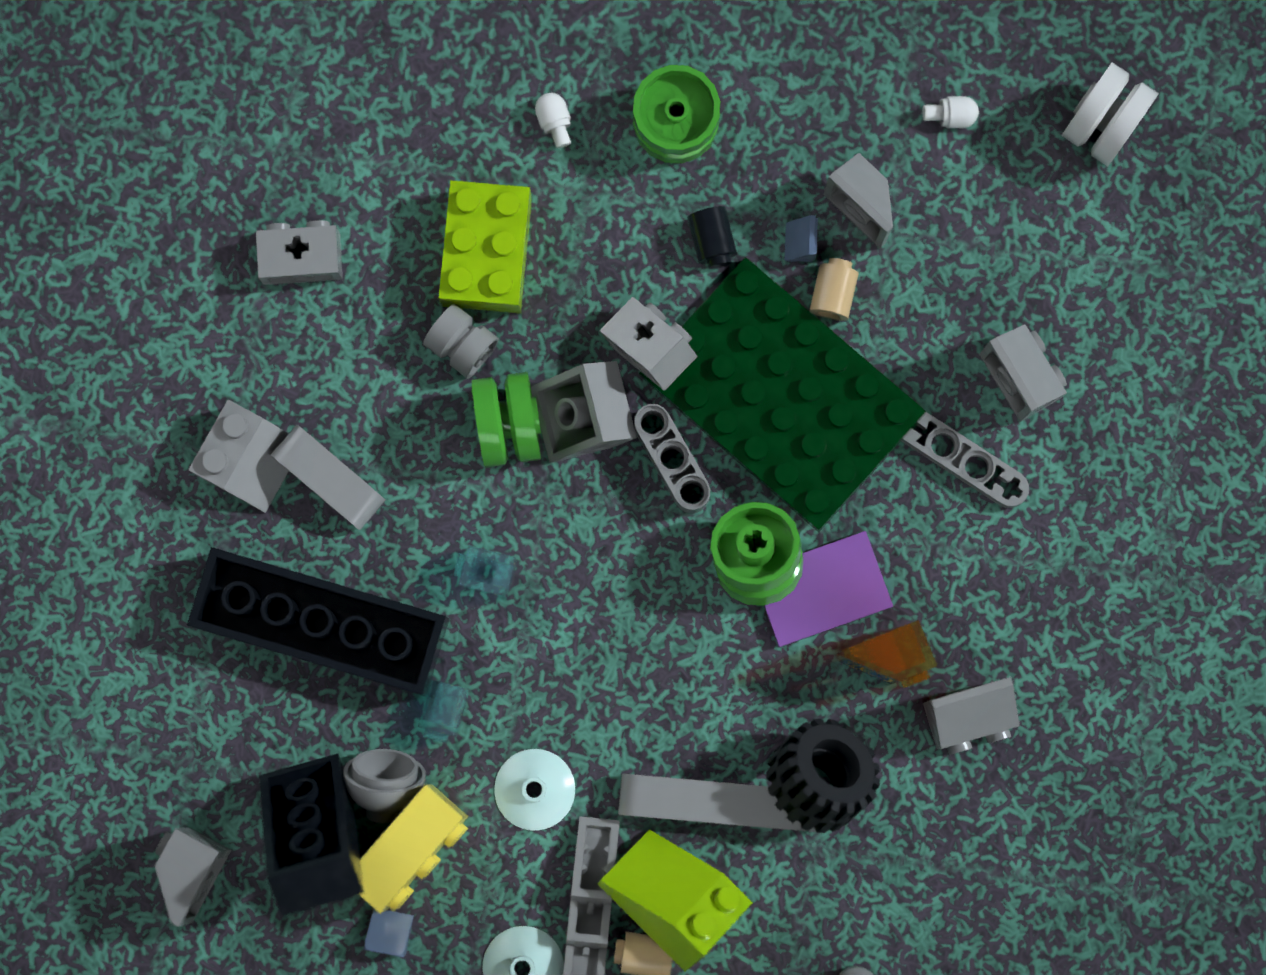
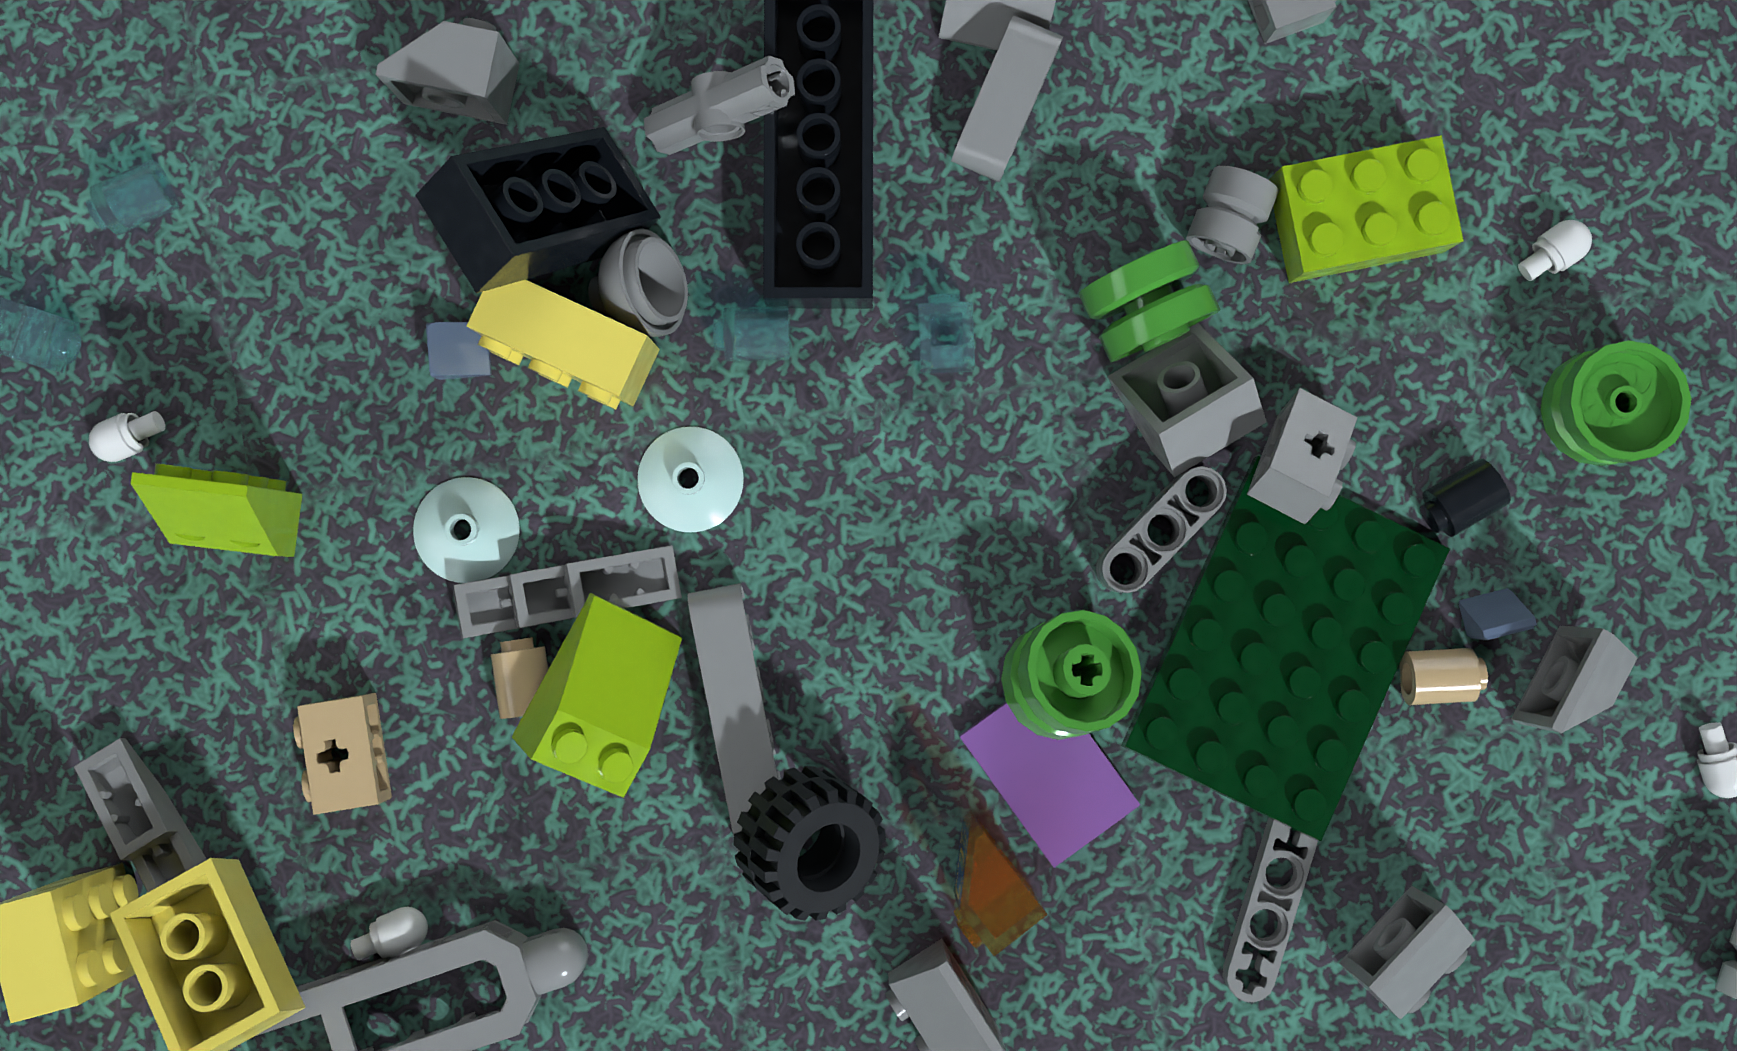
camera: 65 degrees right, 5 degrees up
(273, 686) = (719, 105): none -> light grey piece

